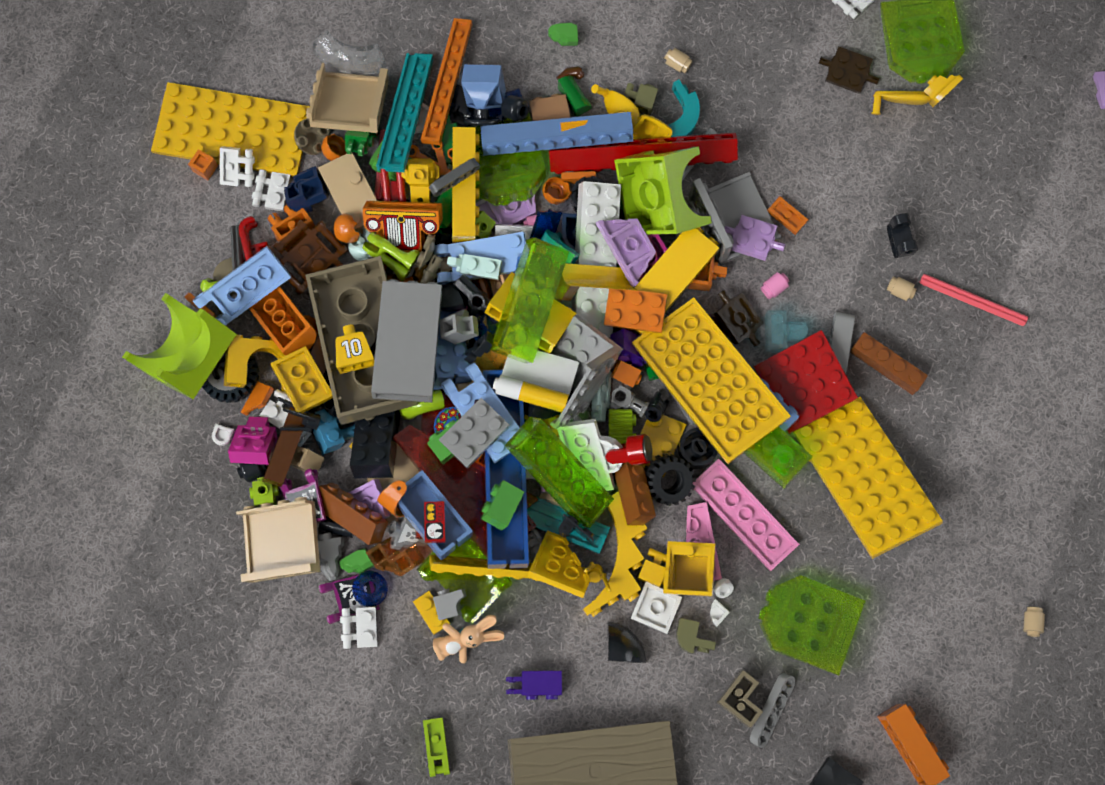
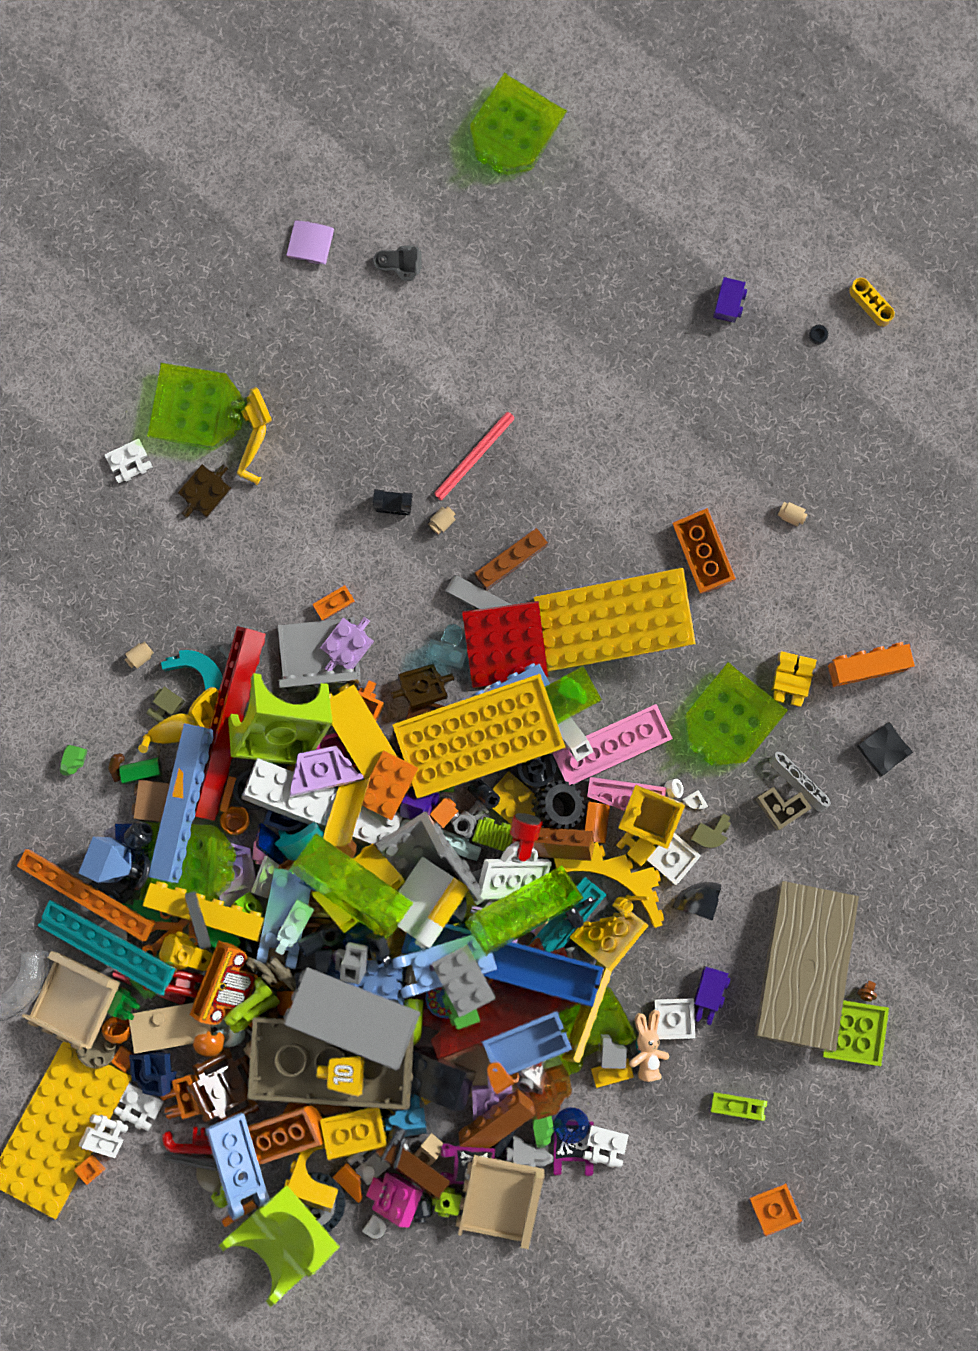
camera: 75 degrees left, 5 degrees up
(309, 161) = (122, 1059): none -> orange tile
(434, 522) = (537, 1045): tile -> none
(501, 505) = (541, 975): bright green brick -> none
(501, 657) = (675, 1018): none -> white plate
(666, 523) = (597, 821): none -> orange brick
(737, 473) = (575, 740): none -> white brick
(775, 285) = (399, 639): bright pink brick -> none
(865, 671) = (794, 684): none -> yellow hips
(964, 544) = (704, 551): none -> orange brick

